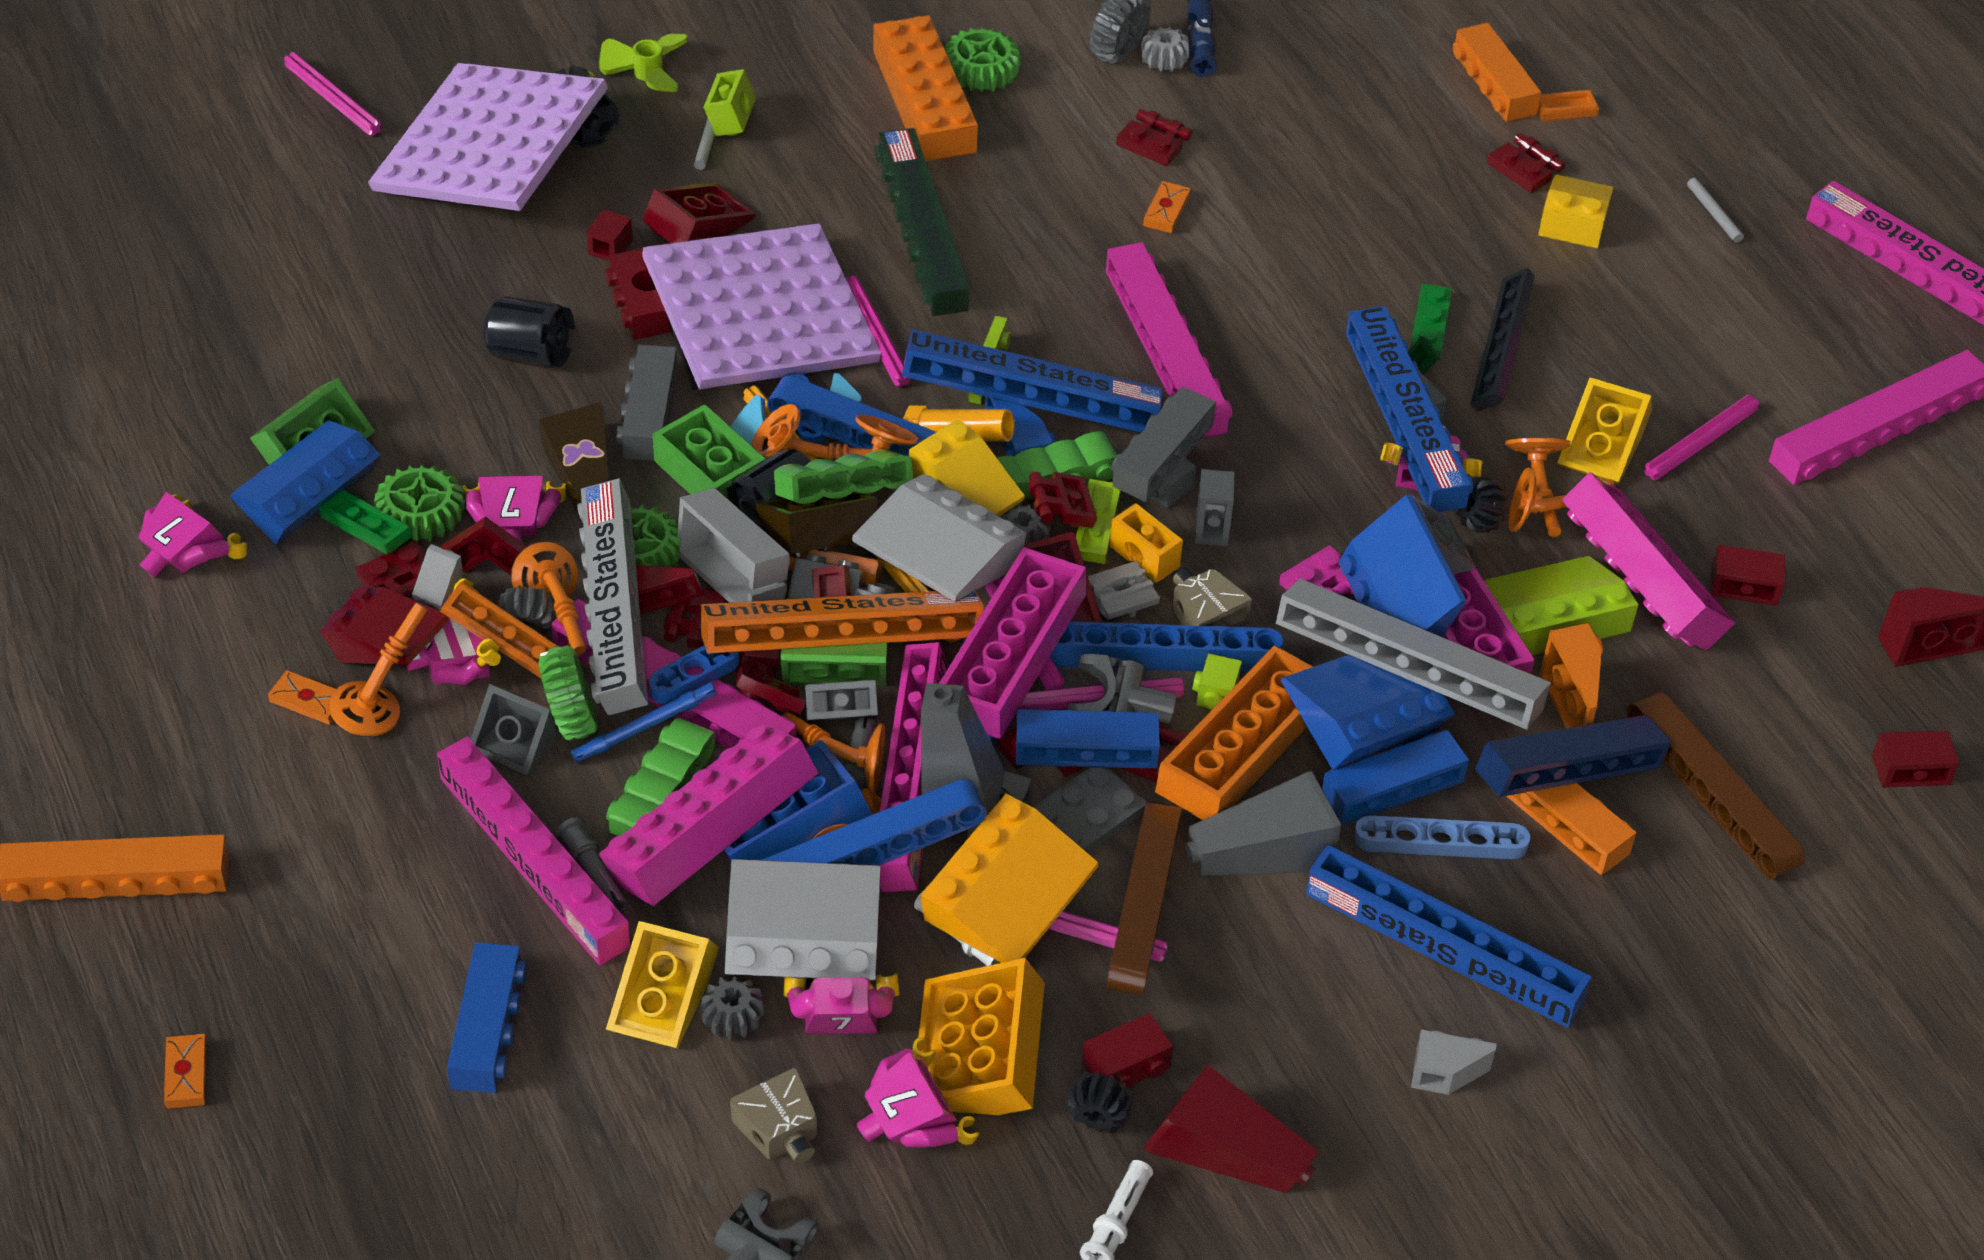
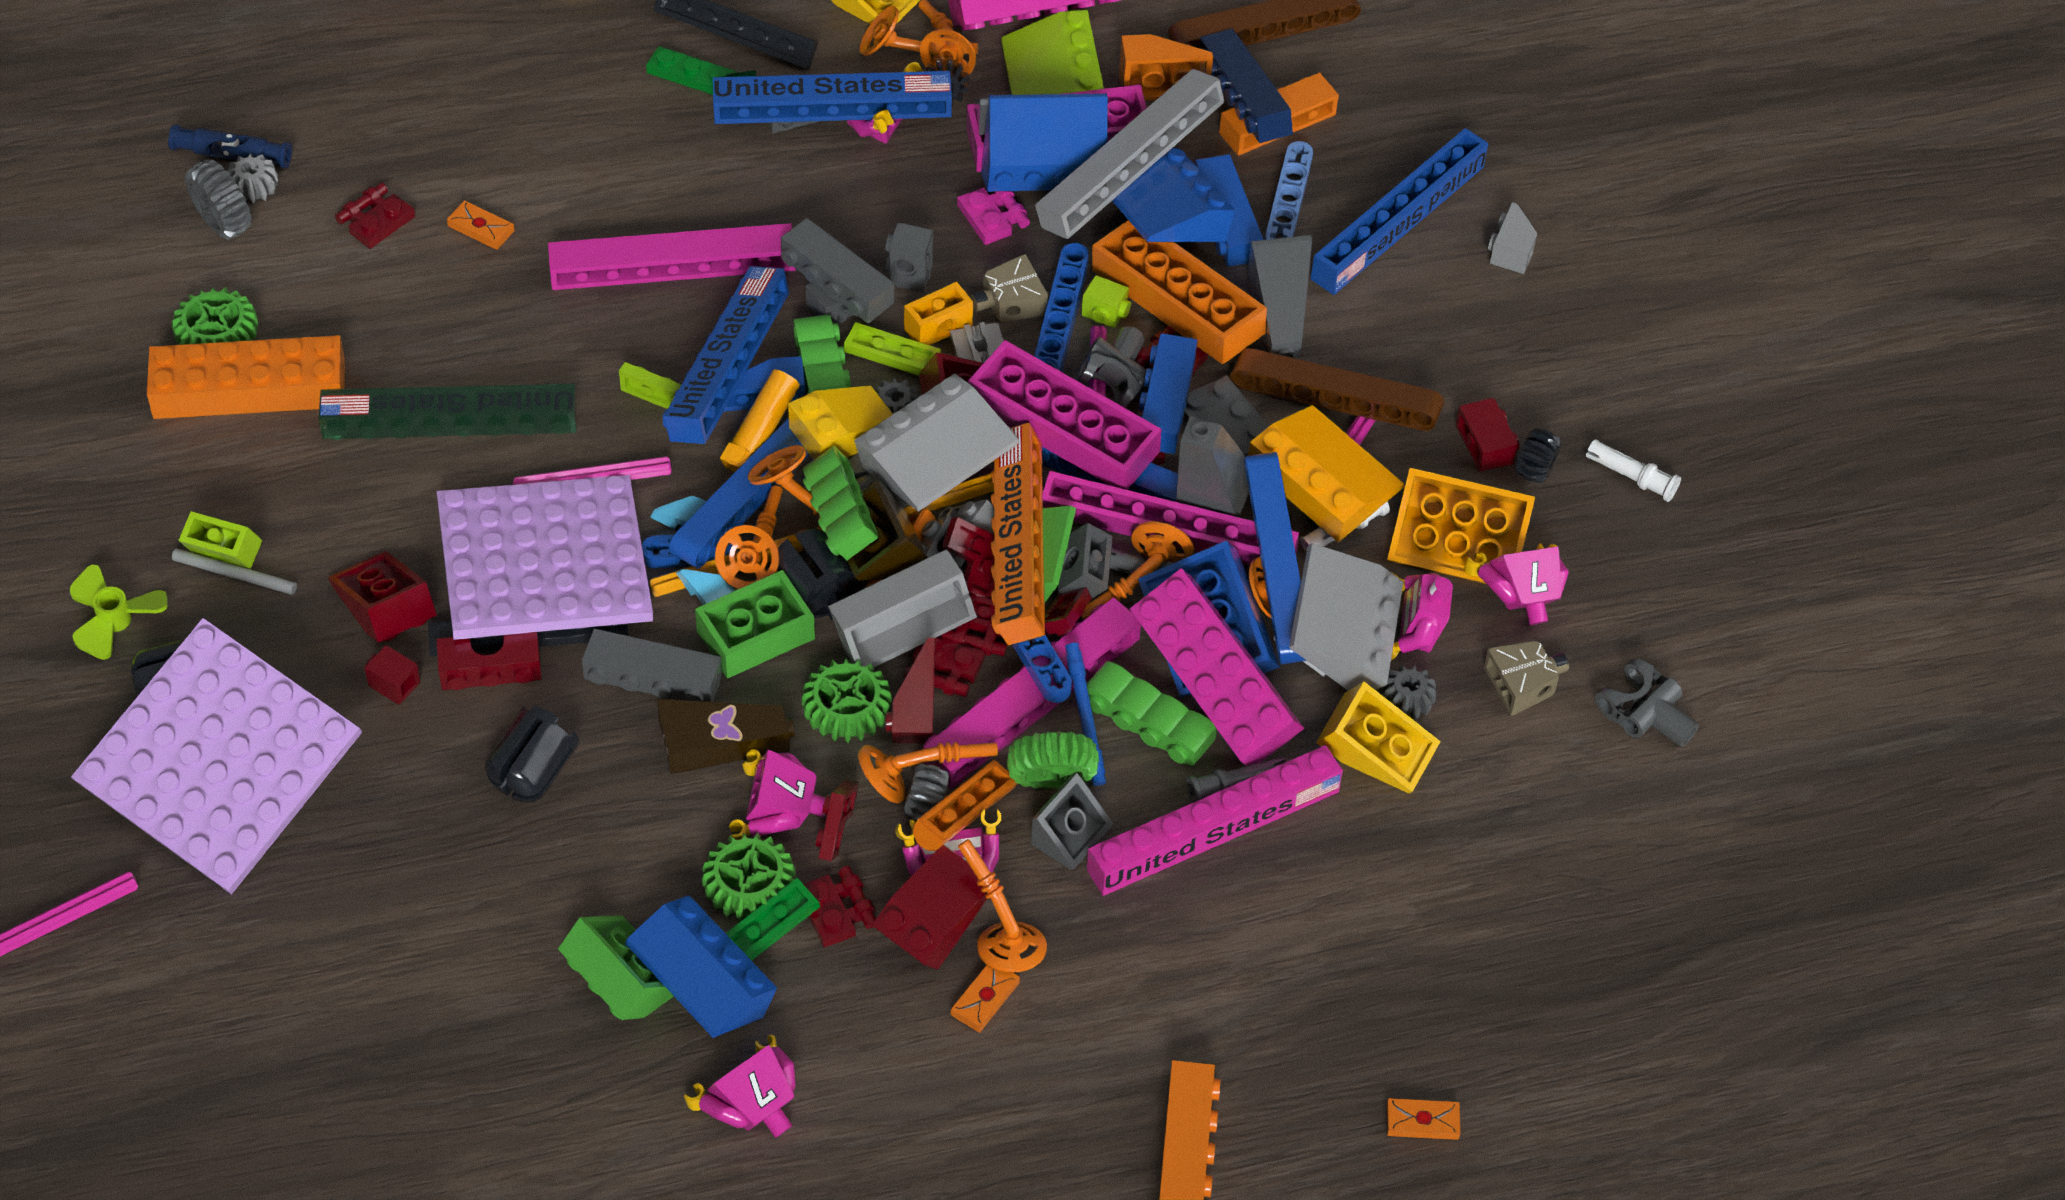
camera: 80 degrees left, 5 degrees up
(437, 577) = (881, 861): light grey slope -> none
(486, 1018) = (1397, 874): blue brick -> none
(612, 597) = (940, 706): light grey brick -> none
(1069, 501) = (878, 360): dark red plate -> none
(1232, 1135) = (1569, 385): dark red slope -> none

